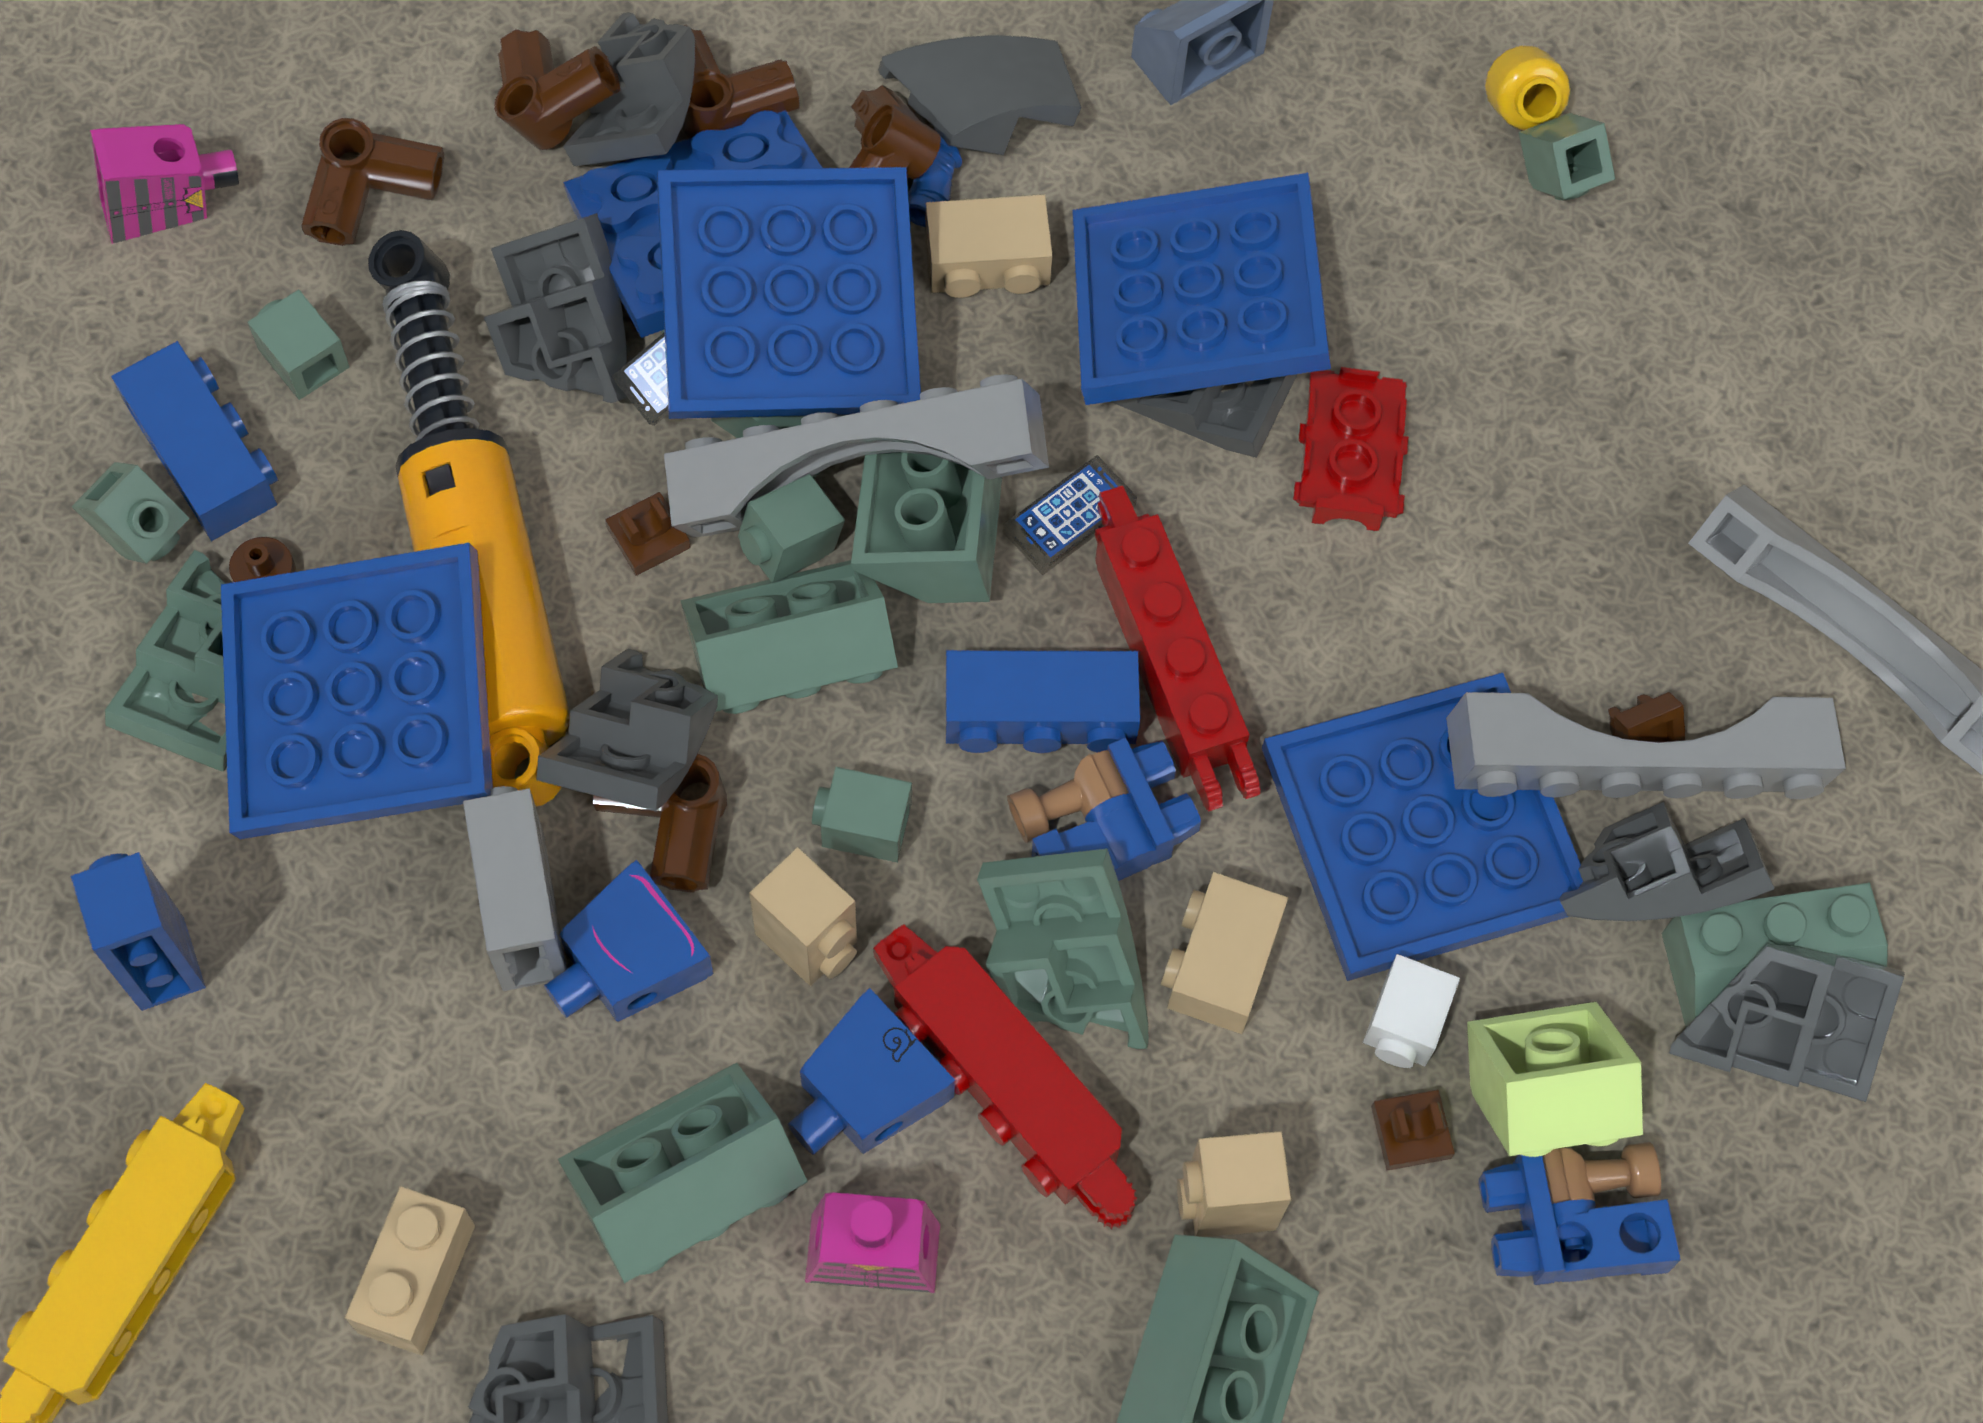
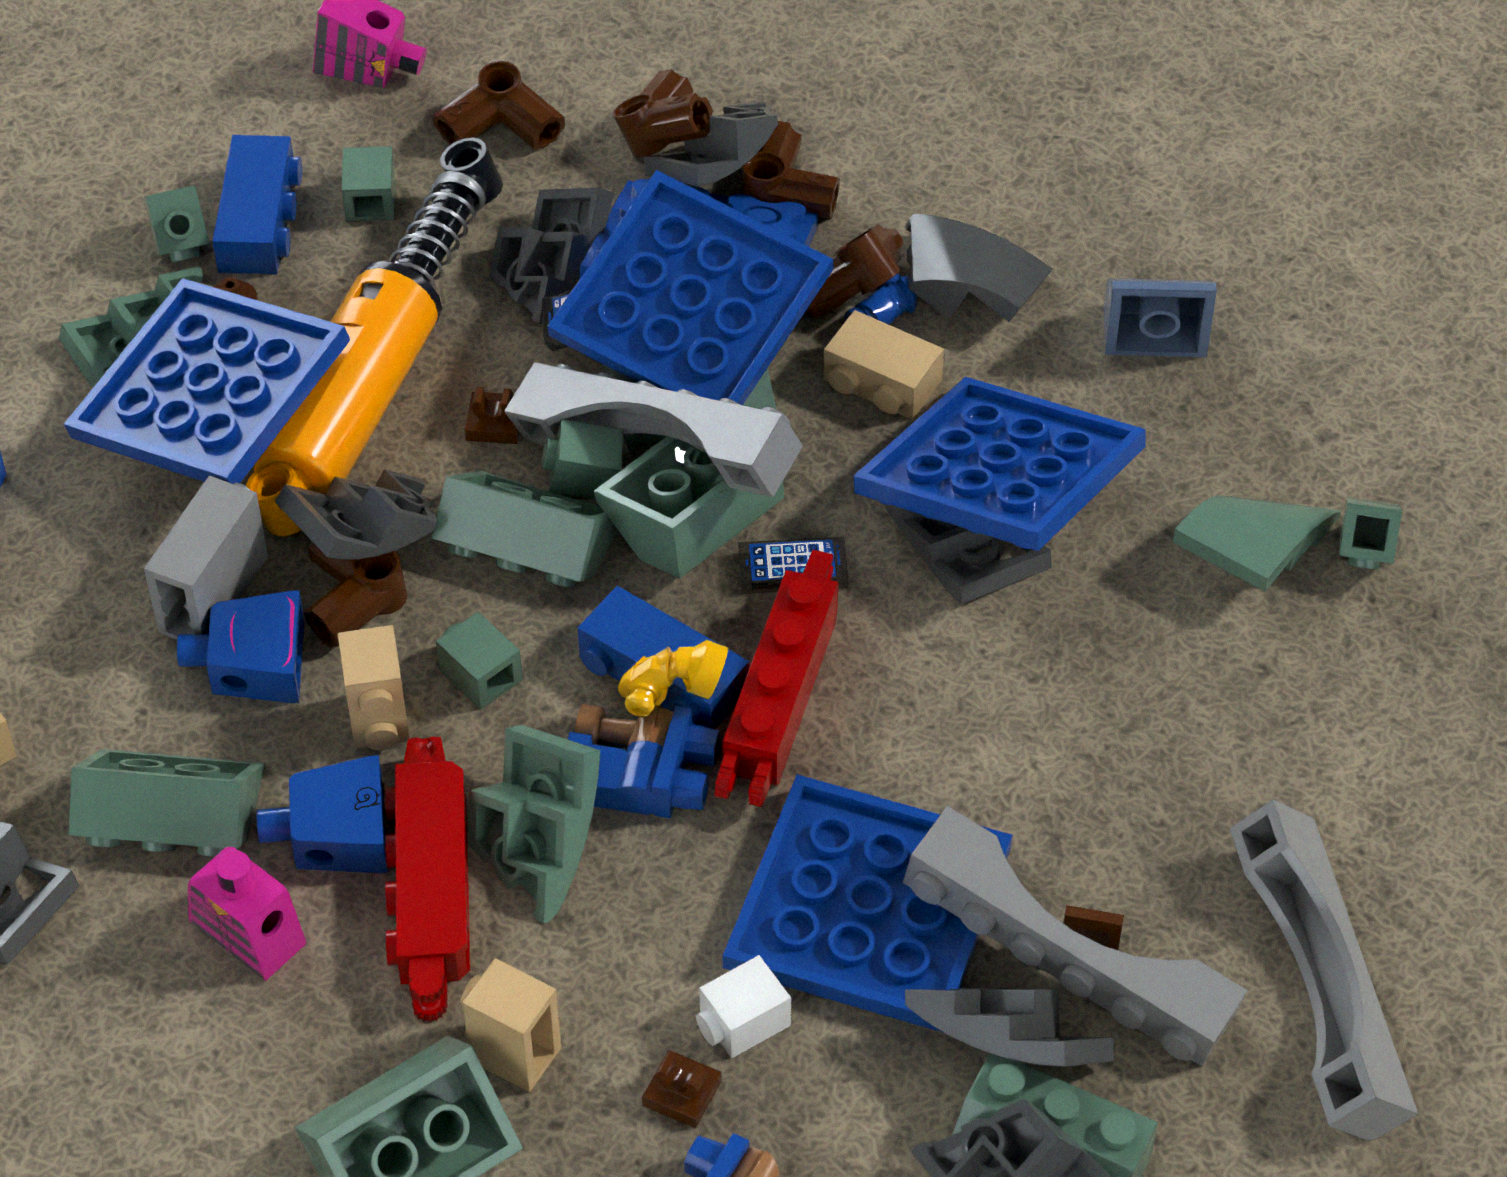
camera: 40 degrees right, 15 degrees down
(1118, 693) = (650, 677): none -> yellow arm
(1225, 953) = (647, 890): tan brick -> none
(1353, 447) = (1039, 636): red piece -> none
(1468, 221) = (1253, 535): none -> sand green slope
(1527, 87) = (1365, 477): yellow head -> none
(1555, 1079) = (796, 1101): yellowish green brick -> none

